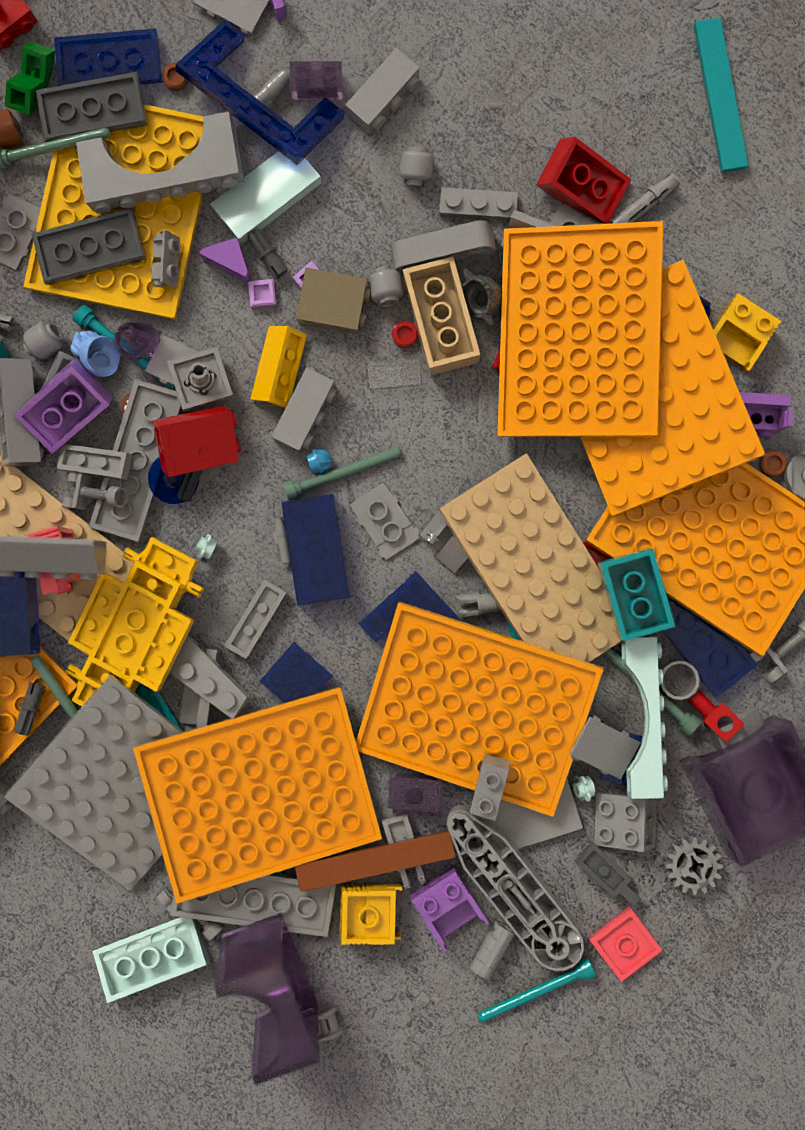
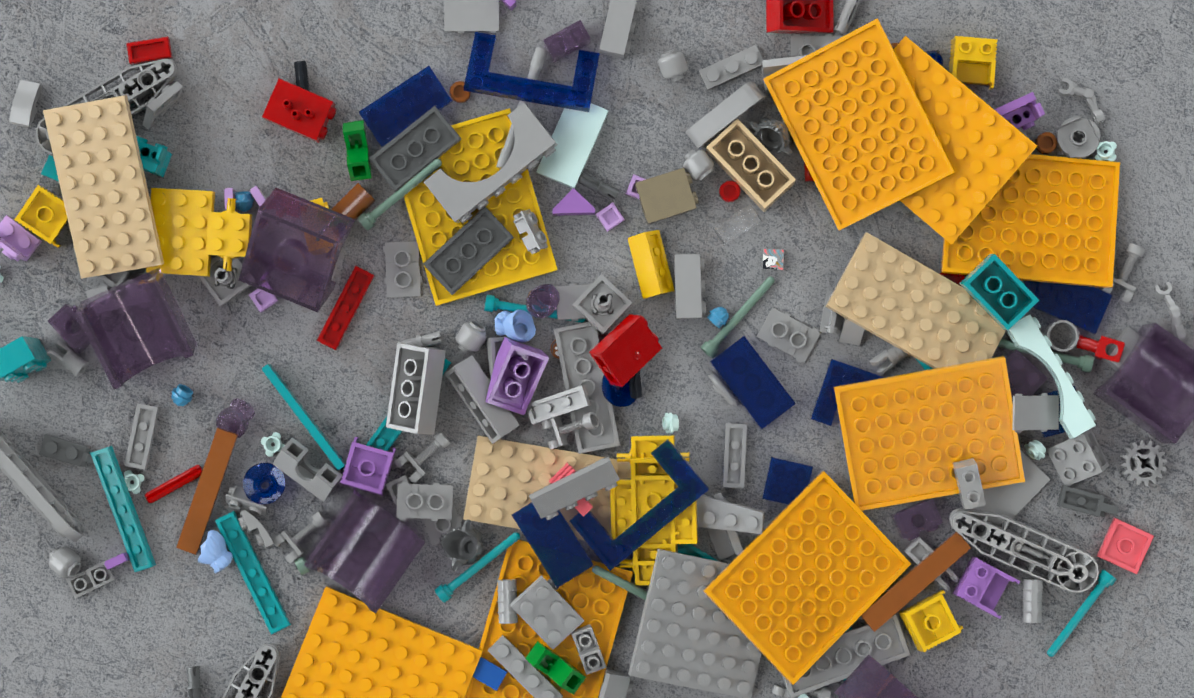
camera: 30 degrees left, 0 degrees up
(29, 708) = (609, 606): dark grey axle -> none
(176, 628) = (689, 489): none -> clear blue plate
(411, 431) = (772, 259): none -> tile
(613, 699) = (1022, 374): none -> clear purple brick

